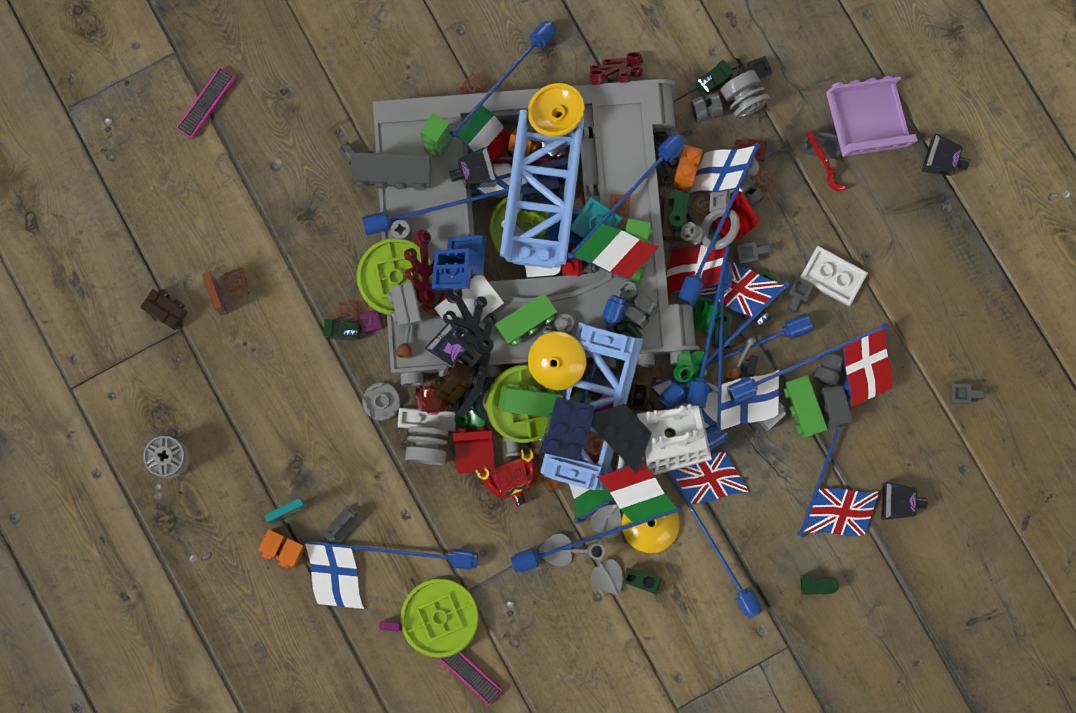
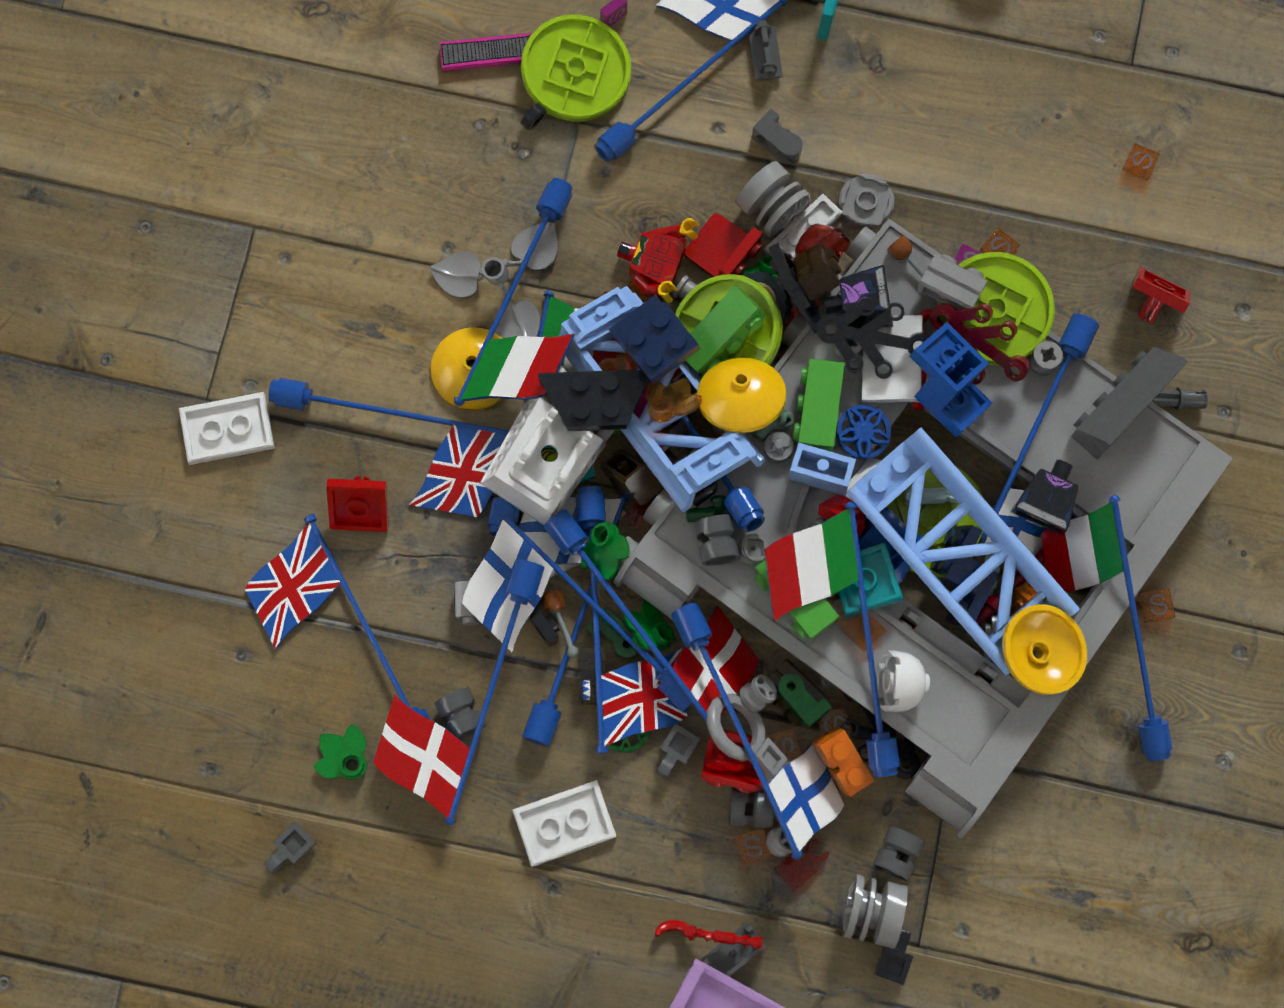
camera: 125 degrees right, 5 degrees down
(164, 309) = (1170, 60): dark brown brick -> none
(215, 293) = (1143, 120): dark orange tile -> none
(305, 210) = (1159, 292): none -> red tile
(341, 330) = (985, 221): dark green leg -> none
(388, 475) = (776, 139): none -> dark grey leg
(436, 135) = (1130, 476): bright green brick -> none
(487, 615) = (533, 116): none -> black tile
(519, 288) = (863, 432): none -> blue wheel
(560, 289) = (821, 469): none -> light blue brick
(588, 393) = (671, 400): none -> clear orange plate
(631, 163) = (901, 681): none -> white cylinder
(633, 60) = (1033, 818): dark red plant -> none
(642, 580) = (419, 304): dark green leg -> none
(715, 77) = (927, 897): dark green leg -> none
(774, 513) = (357, 504): none -> red tile
(794, 621) = (226, 428): none -> white tile
(799, 291) = (581, 764): dark grey plate -> none
(804, 407) = (444, 647): bright green brick -> none
(812, 587) = (236, 484): dark green leg -> none
(834, 407) = (411, 679): dark grey hinge -> none
(898, 413) = (339, 752): none -> green plate
(900, 501) = (240, 658): black torso -> none

